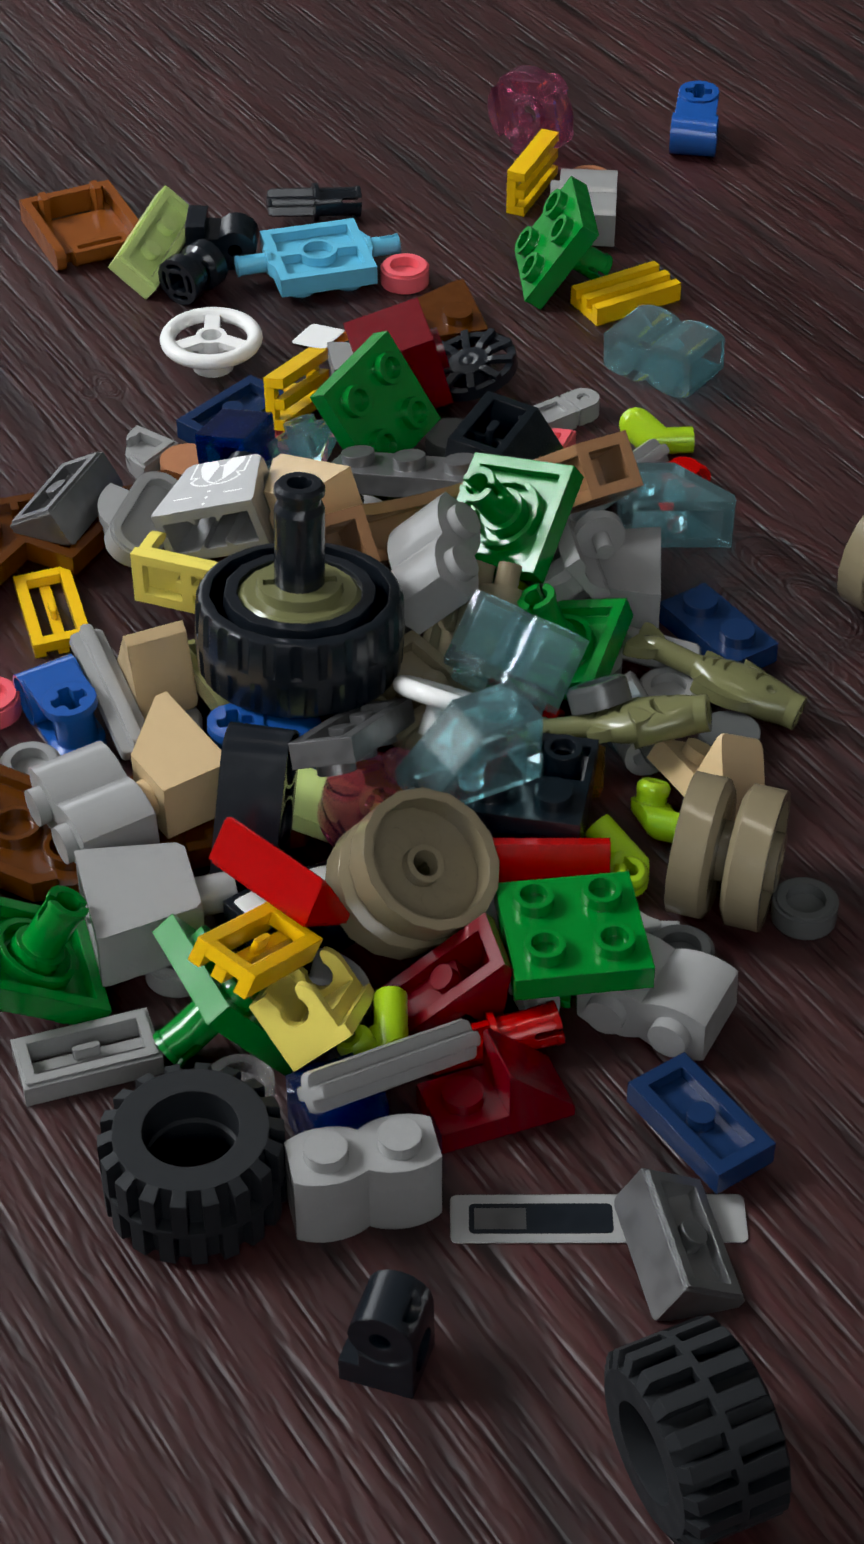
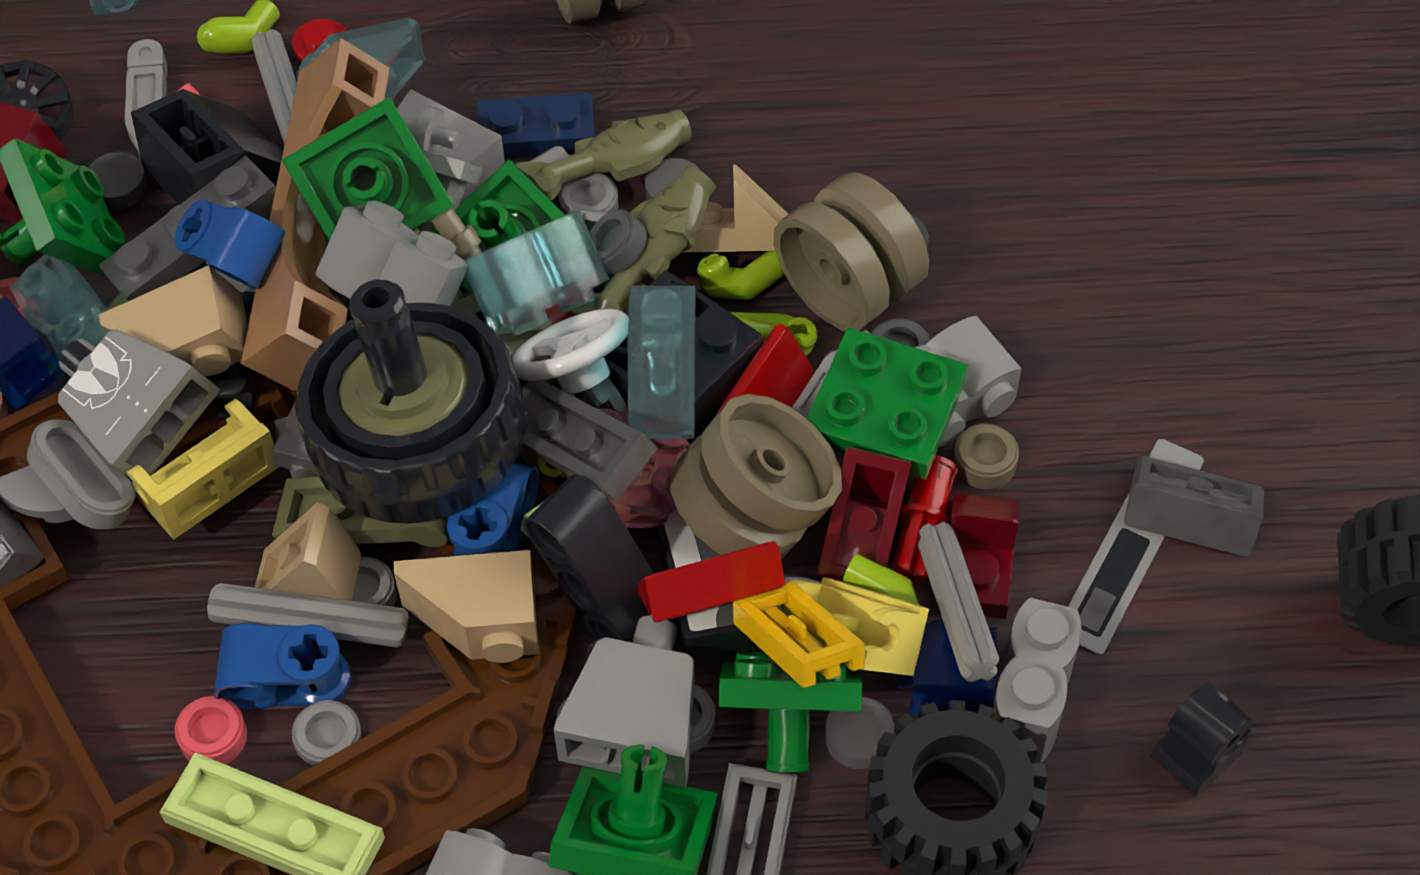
camera: 60 degrees left, 15 degrees up
(43, 579) = (159, 635): yellow tile -> none
(89, 802) = (484, 694): light grey brick -> none
(385, 475) = (229, 240): none -> blue piece
(607, 1063) = (986, 456): none -> dark tan tile
(700, 1122) = (1091, 425): dark blue plate -> none

